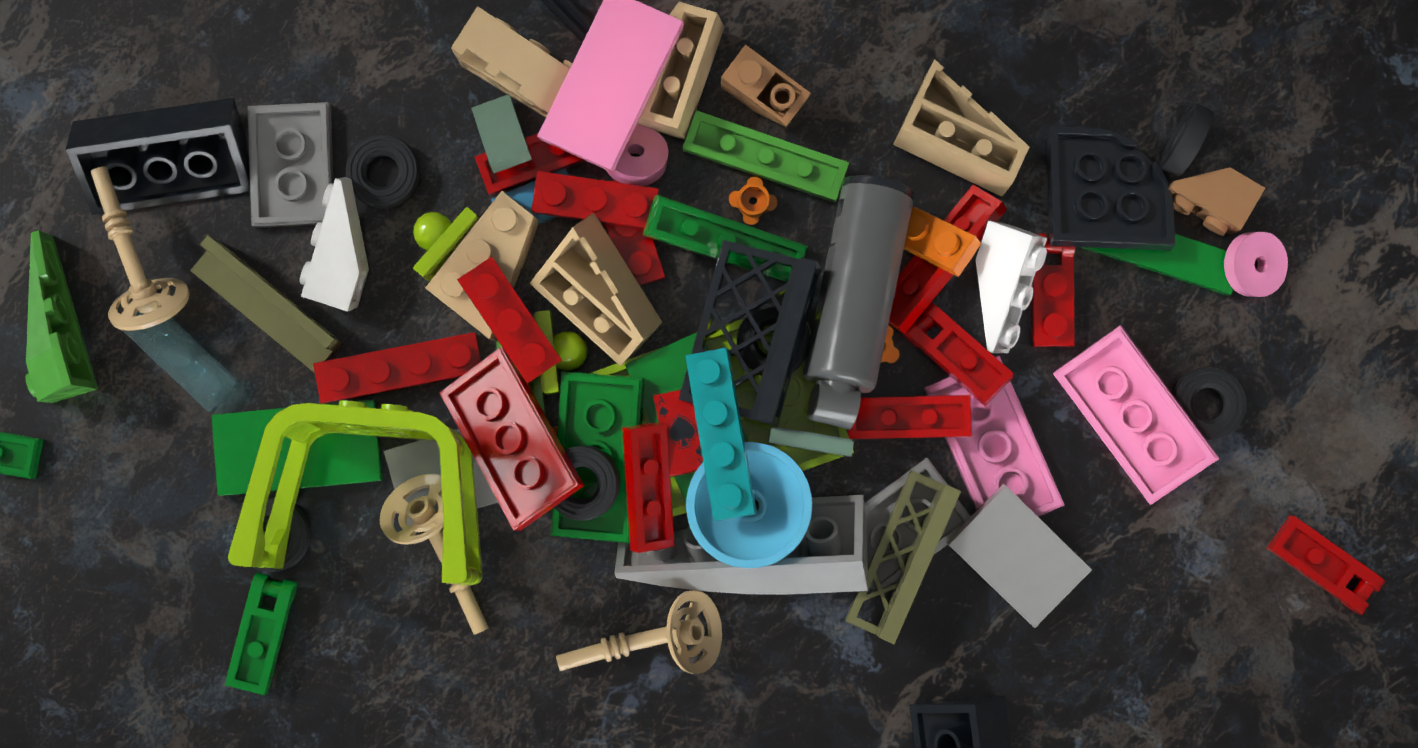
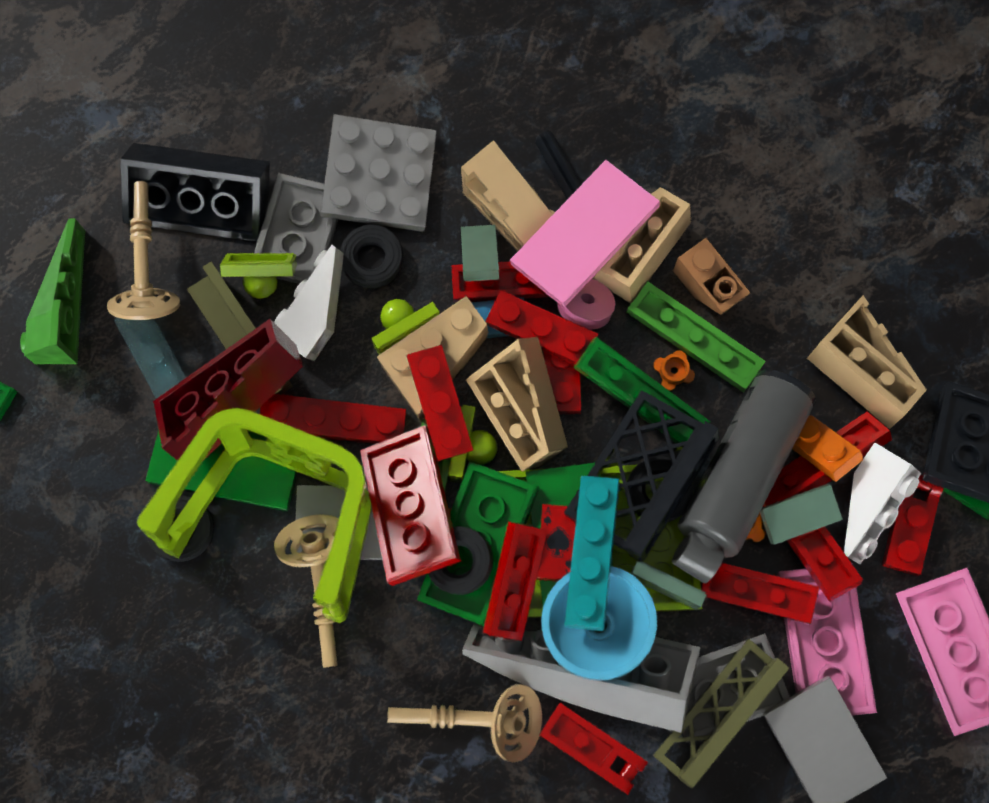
camera: 20 degrees right, 10 degrees down
(260, 635) = (140, 610): green plate -> none
(263, 227) = (258, 270): none -> lime tile
(271, 375) = (236, 378): none -> dark red wedge
(360, 73) = (378, 173): none -> light grey plate
(779, 631) = (592, 747): none -> red plate
(930, 322) = (800, 514): none -> sand green tile

